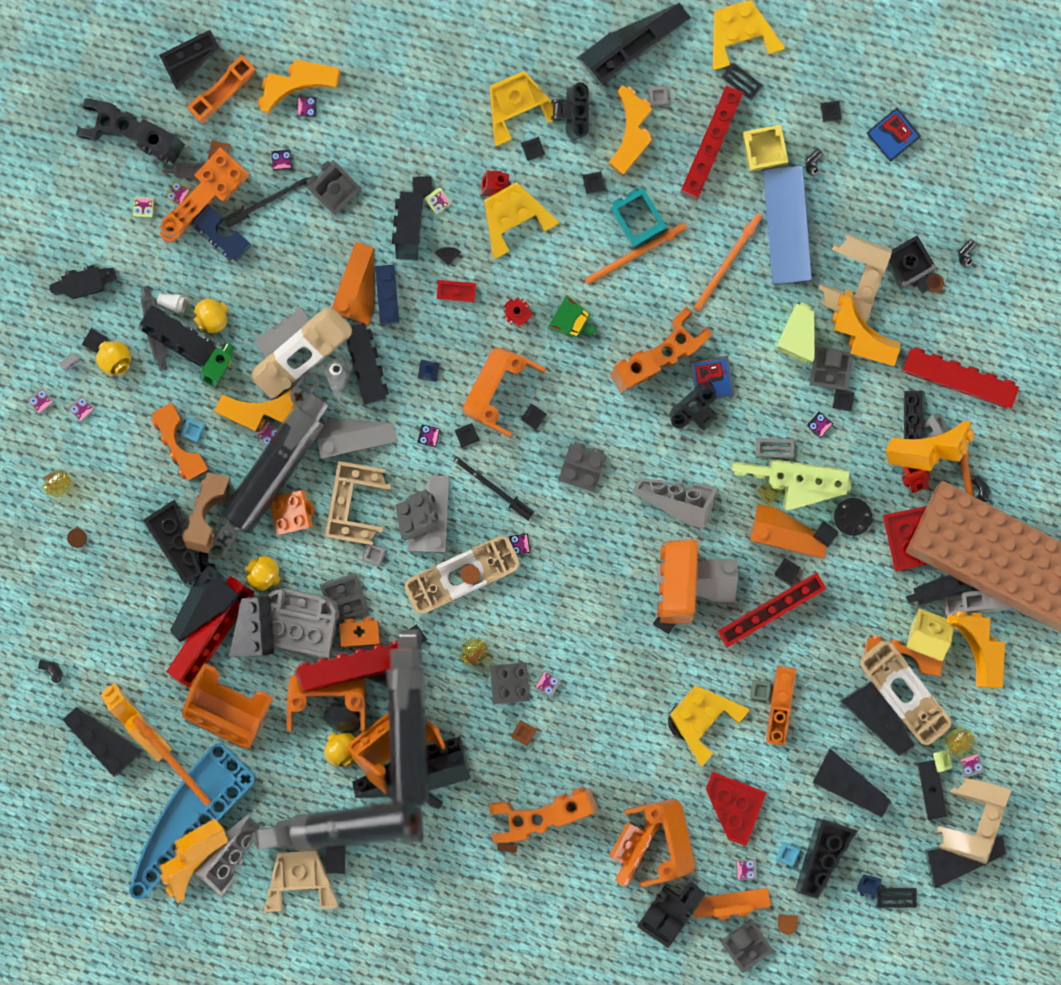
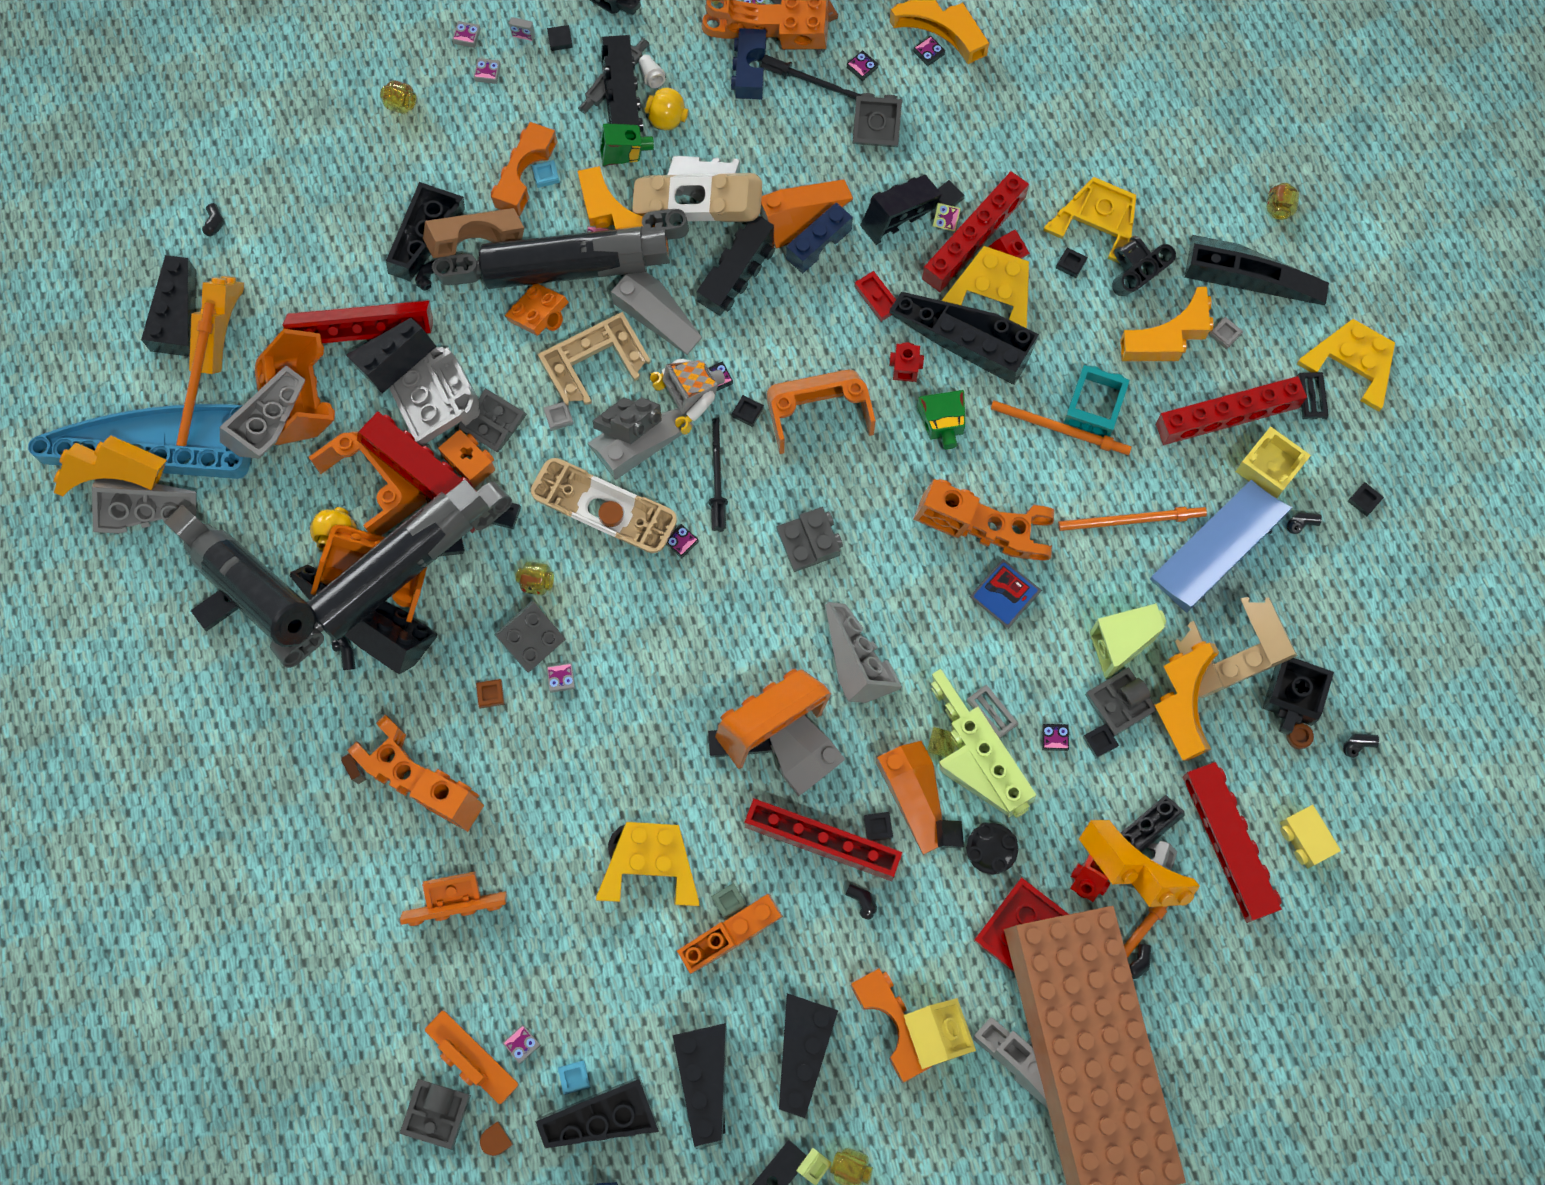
camera: 50 degrees right, 15 degrees down
(77, 538) = (360, 152): reddish brown tile -> none
(113, 357) = (555, 56): yellow plant -> none
(207, 598) = (393, 293): black wedge -> none
(240, 743) = (261, 419): none -> light grey wedge
(262, 573) = (456, 328): yellow plant -> none
(298, 872) = (172, 584): tan wing -> none
(338, 376) = (701, 249): clear slope -> none
(342, 718) = (364, 503): black dish -> none
(426, 460) = (690, 386): none -> torso
(428, 370) = (780, 330): dark blue tile -> none
(448, 254) = (905, 265): black tile -> none
(464, 192) = (975, 231): none -> red brick
(532, 255) = (970, 333): none -> black wedge
(533, 416) = (819, 457): black tile -> none
(593, 182) = (1091, 338): black tile -> none
(669, 913) = (408, 997): black plate -> none
(677, 836) = (496, 937): orange windscreen -> none
(701, 414) = (959, 606): black piece -> none
(735, 806) = (582, 975): red plate -> none
(822, 612) = (866, 900): none -> black arm
(893, 134) = (1403, 575): slope -> none
(923, 712) = (847, 1098): tan piece -> none
(935, 590) = (992, 1001): black hinge -> none
(986, 650) = (974, 1114): light orange arch -> none
(993, 332) = (1309, 837): none -> light yellow brick

